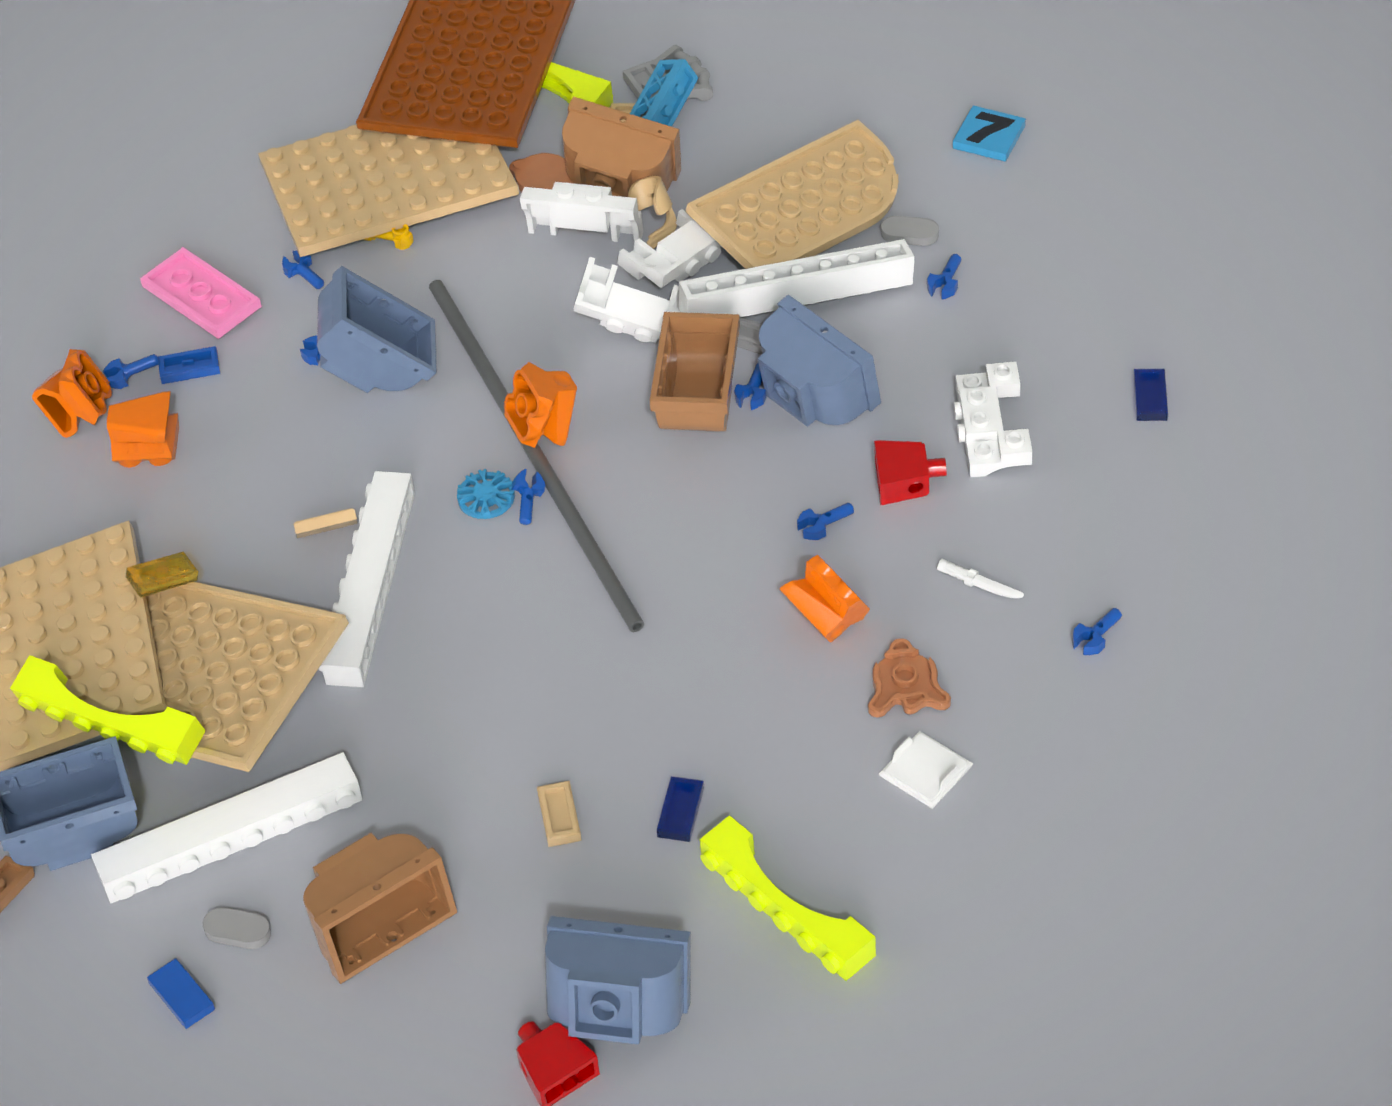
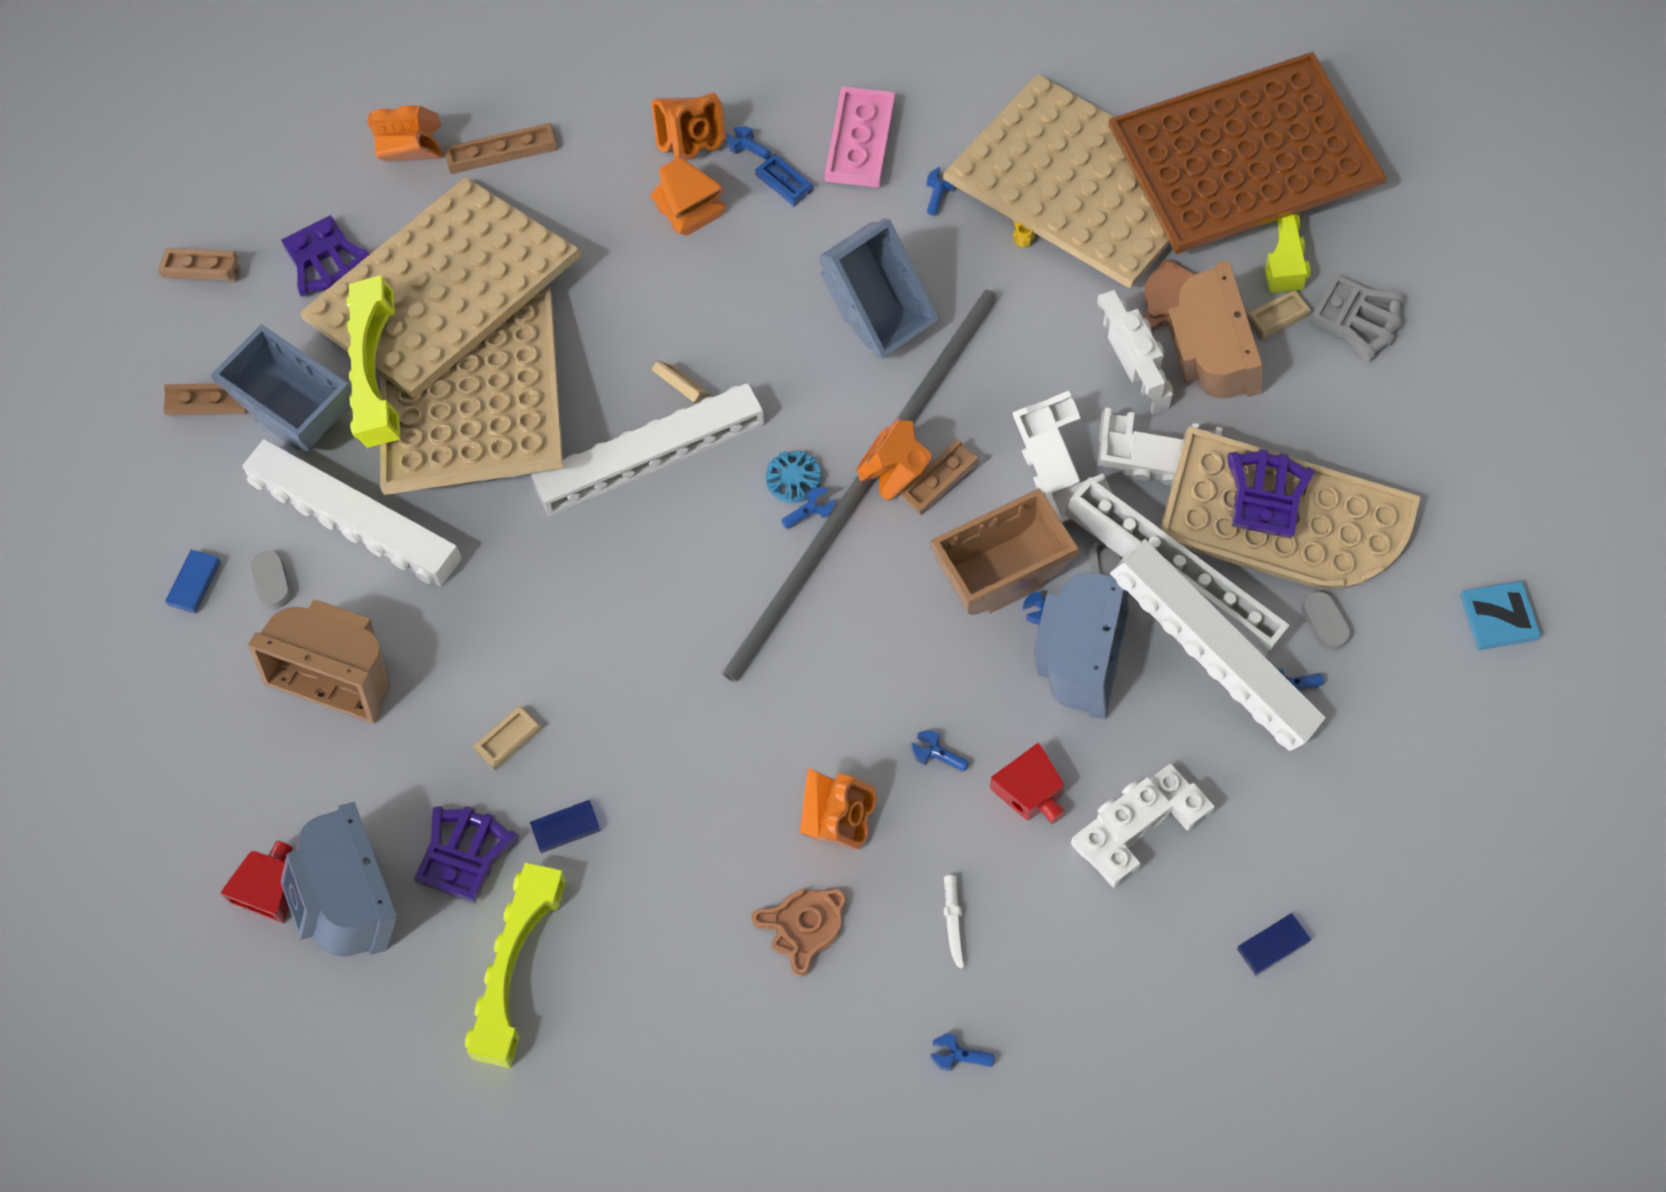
camera: 55 degrees right, 15 degrees up
(161, 574) = (535, 307): clear yellow plate -> none
(583, 414) = (939, 477): none -> medium nougat hinge
(642, 190) = (1191, 386): tan helmet -> none
(659, 906) = (456, 871): none -> dark purple plate
(673, 92) = (1310, 333): dark azure fence -> none
(792, 204) = (1265, 510): none -> dark purple plate
(887, 281) = (1217, 646): none -> white brick
(925, 769) = (723, 996): white piece -> none

